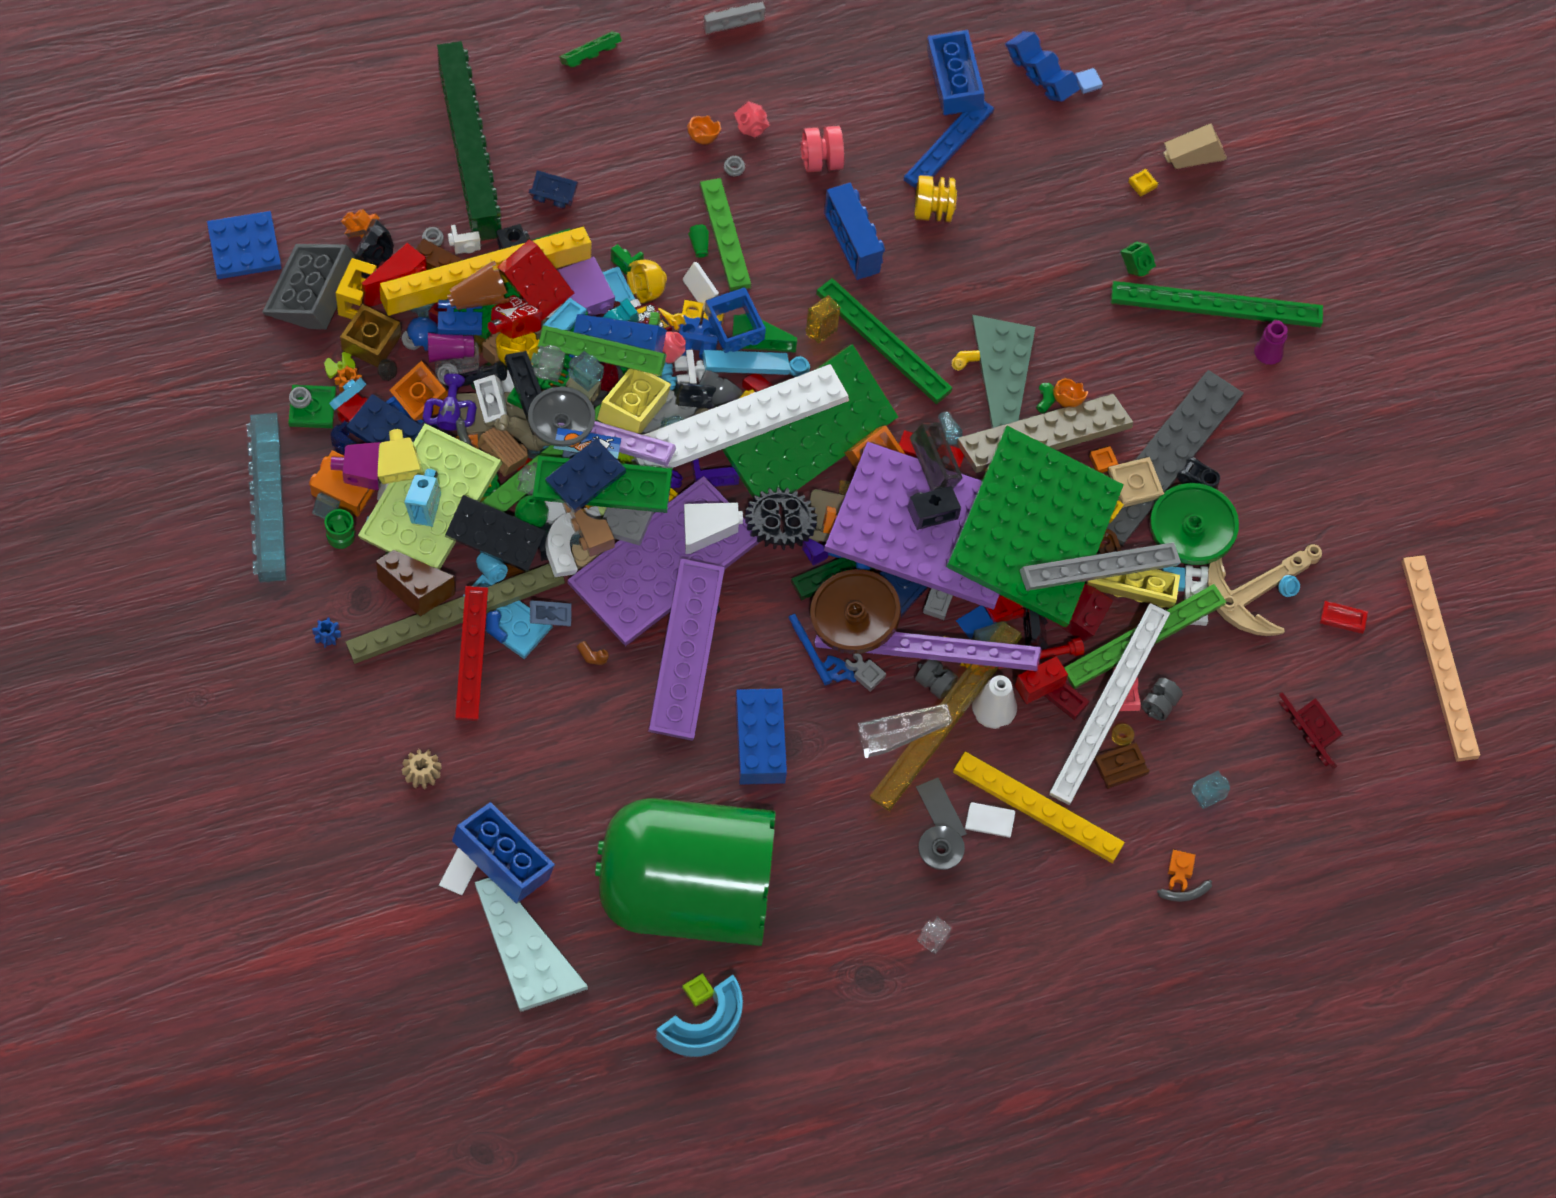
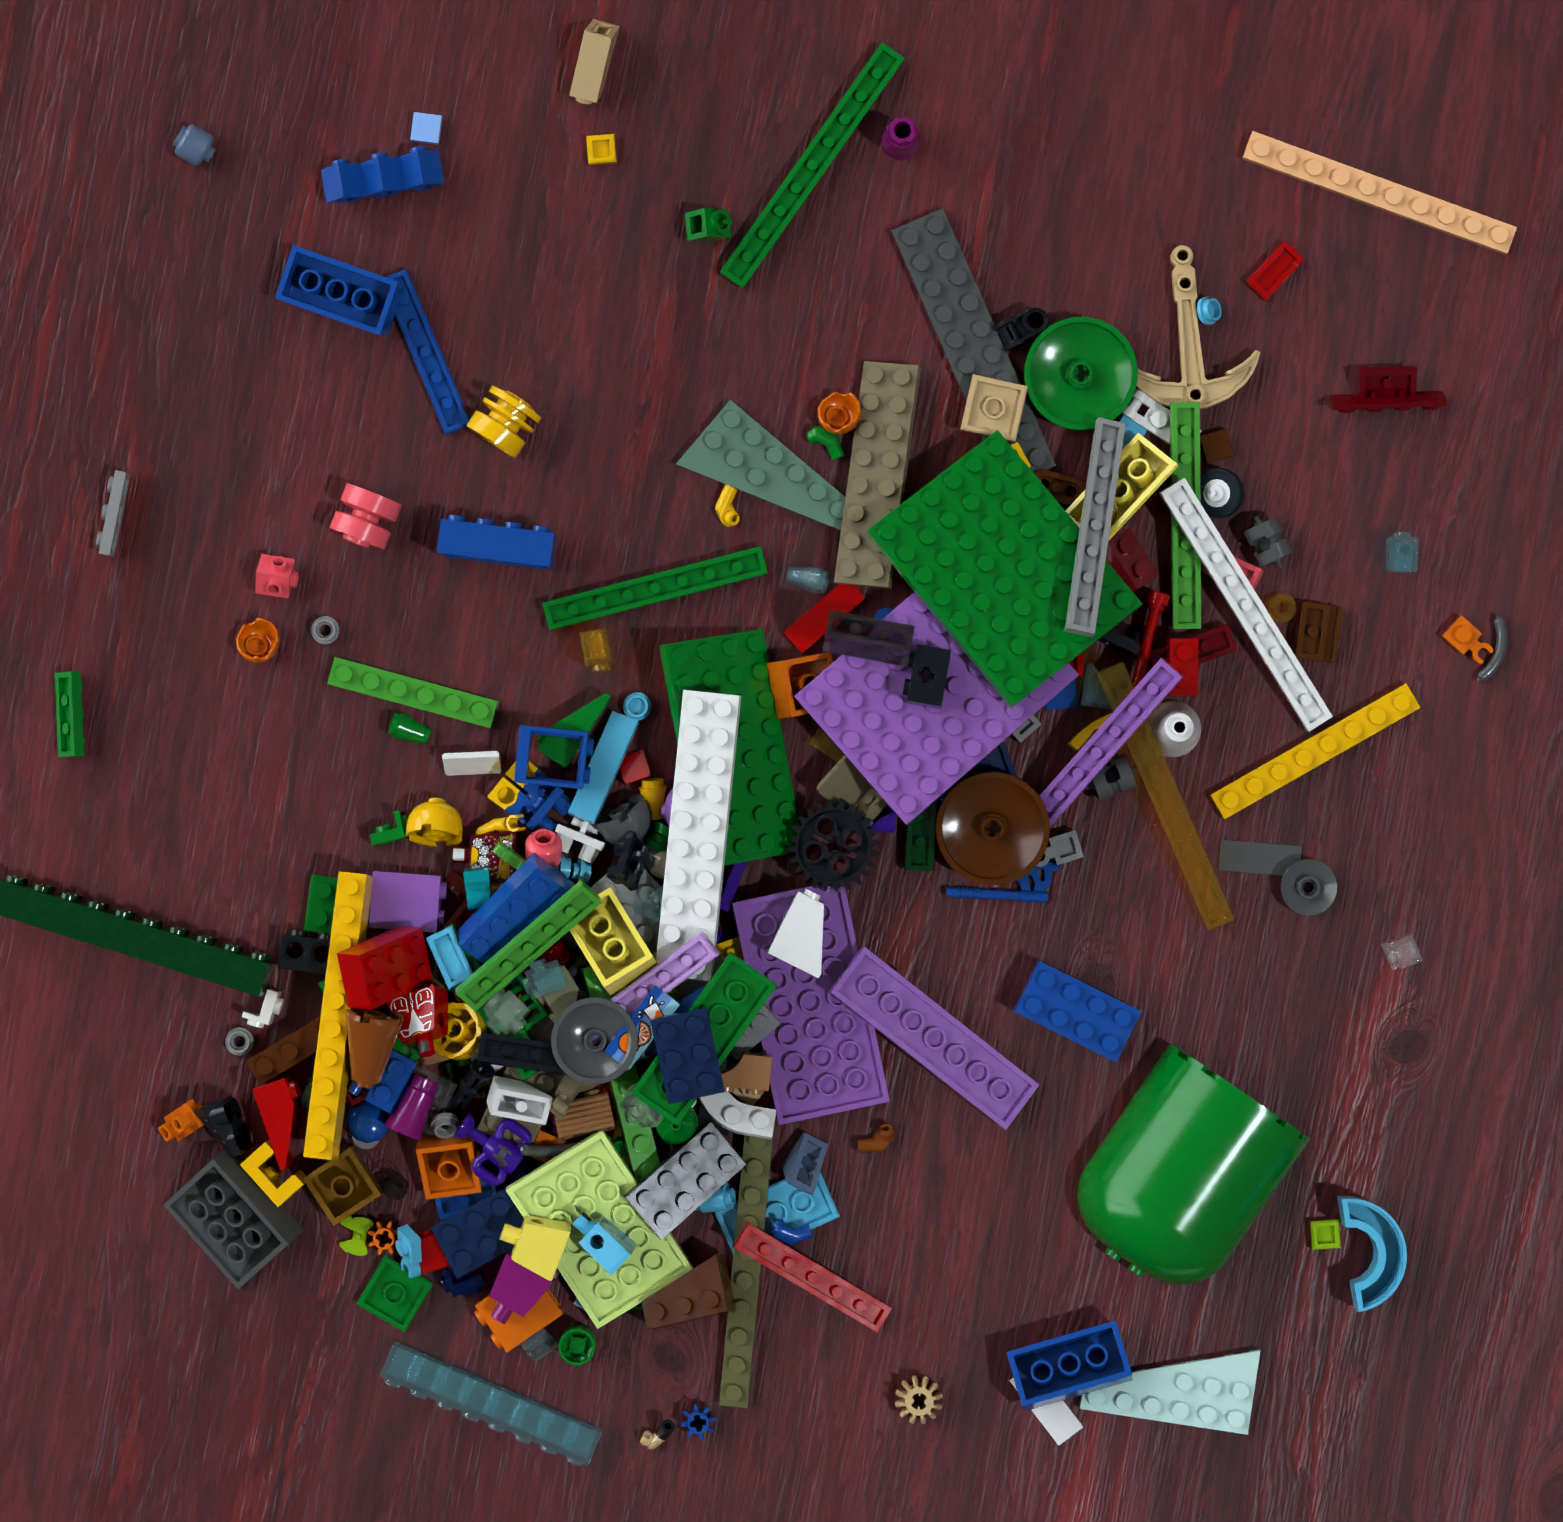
camera: 55 degrees left, 25 degrees up
(244, 245) = (133, 1266): blue plate -> none
(300, 392) = (376, 1312): light grey plate -> none
(304, 615) = (662, 1433): none -> arm
(554, 189) = (249, 866): dark blue bracket -> none
(618, 284) = (420, 859): medium azure tile -> none
(829, 519) = (862, 790): orange plate -> none
(894, 731) = (1156, 852): clear slope -> none
(990, 819) = (1303, 814): white slope -> none
(1103, 459) = (942, 424): orange plate -> none
(1173, 652) = (1221, 492): none -> black wheel
(1203, 638) = (1216, 446): none -> reddish brown tile

